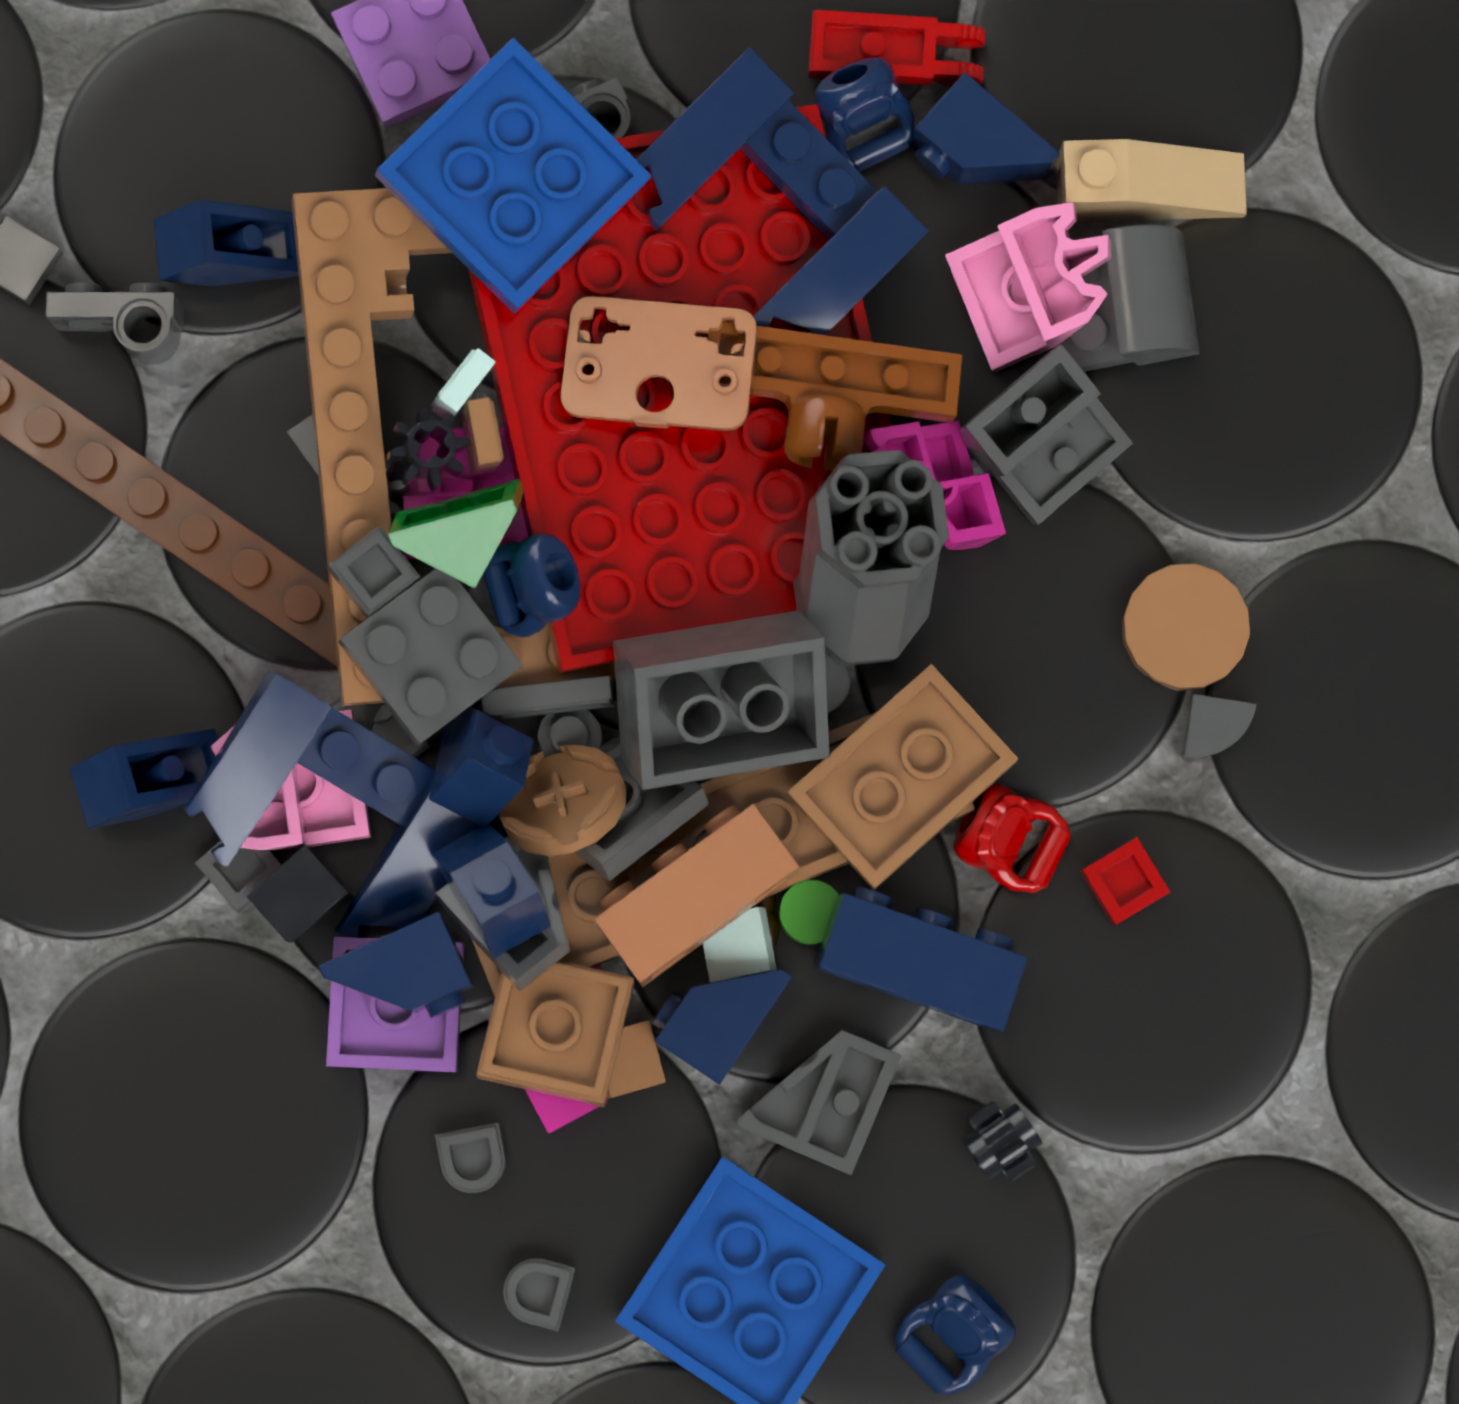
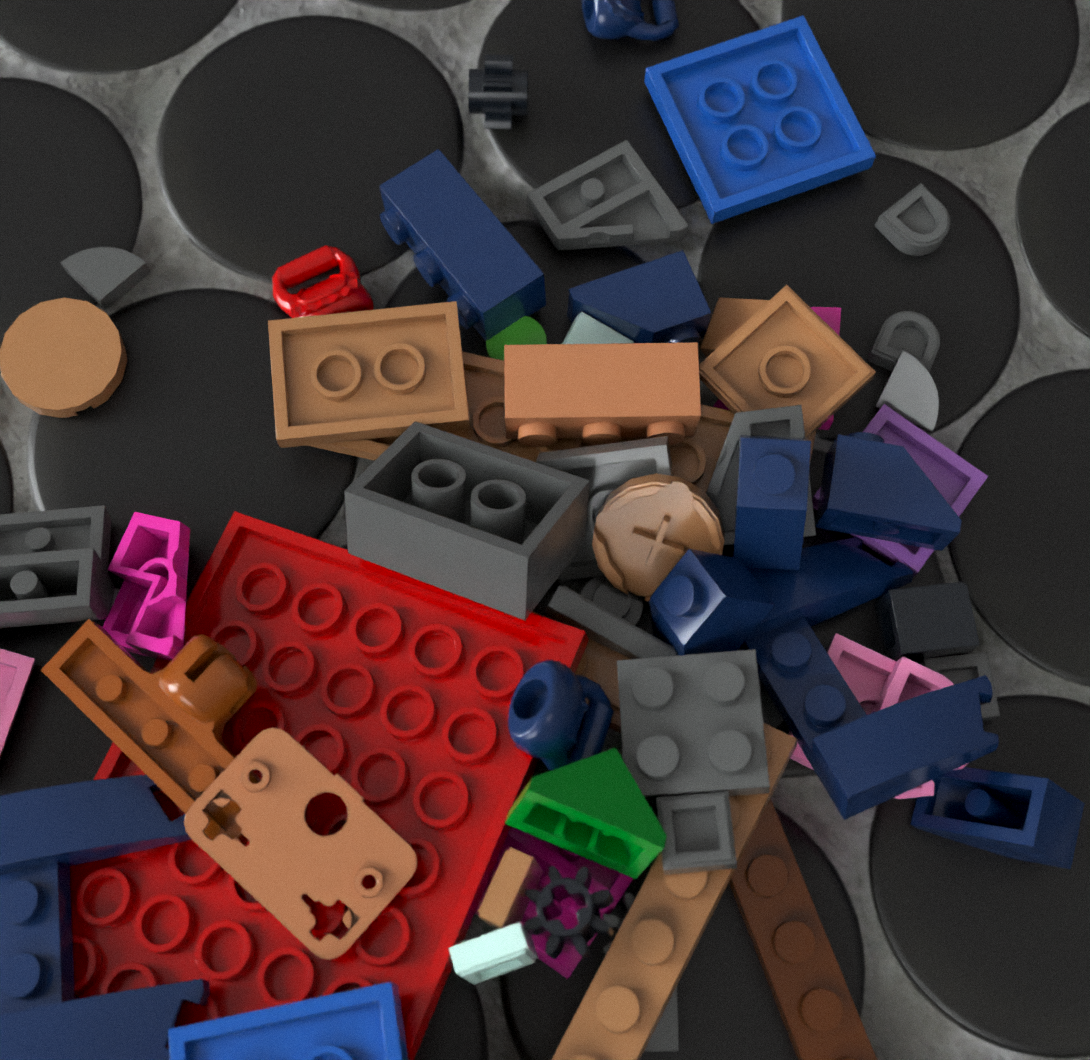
camera: 145 degrees left, 10 degrees down
(439, 1105) = (911, 391): none -> tile
(871, 555) = (246, 544): dark grey brick -> none
(1125, 881) = (264, 206): red plate -> none

